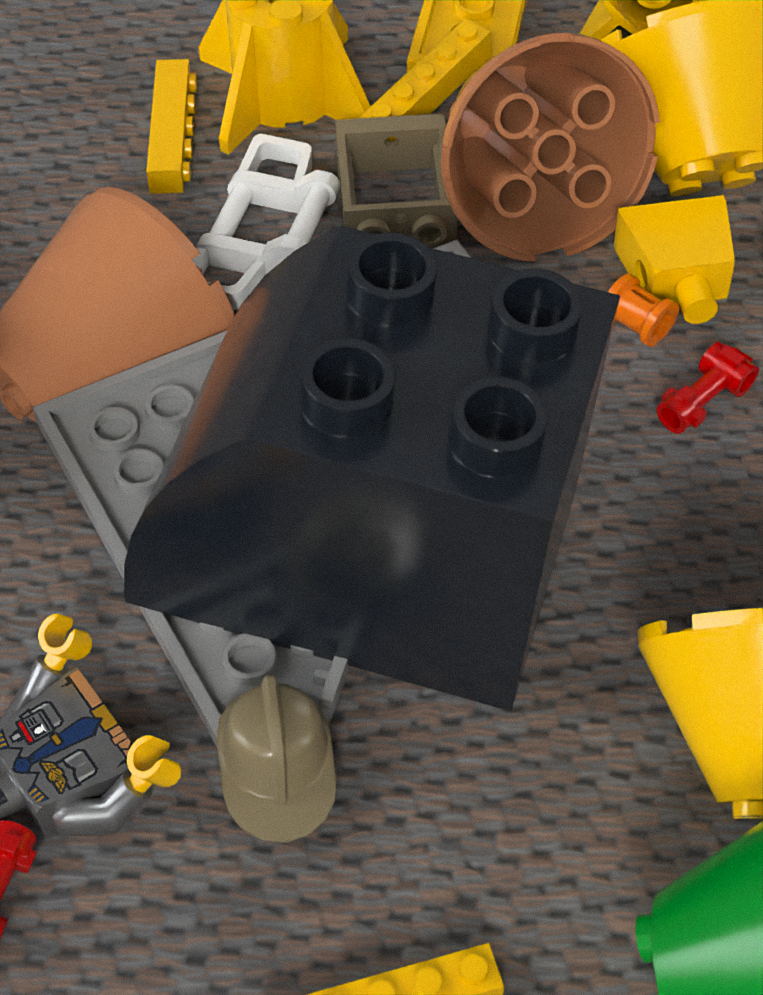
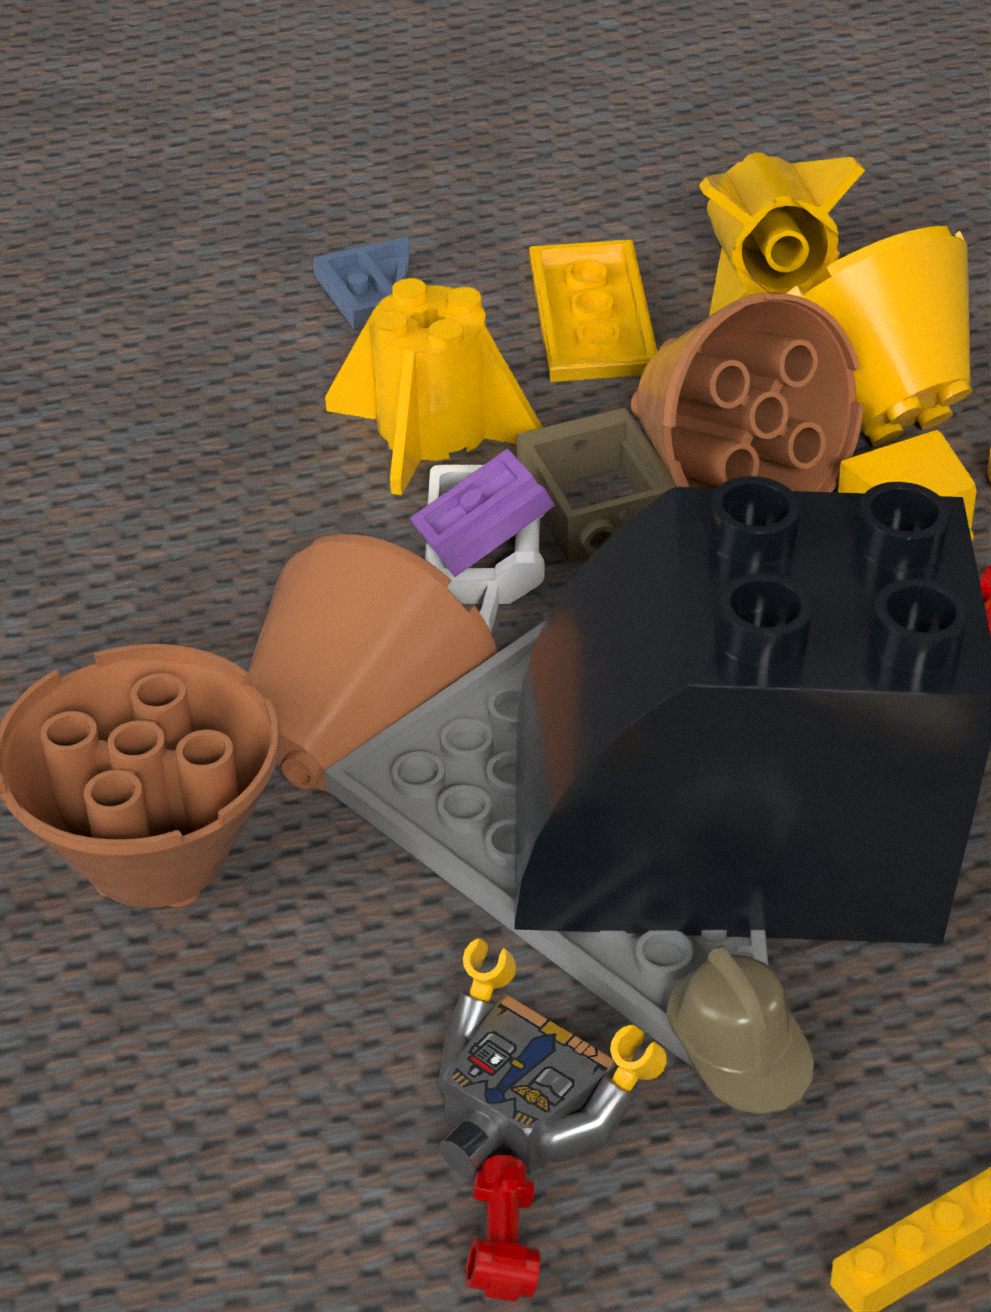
camera: 15 degrees left, 10 degrees down
(171, 127) = (331, 475): yellow piece -> none
(268, 190) = (482, 512): none -> medium lavender plate
(436, 74) = (593, 373): yellow piece -> none

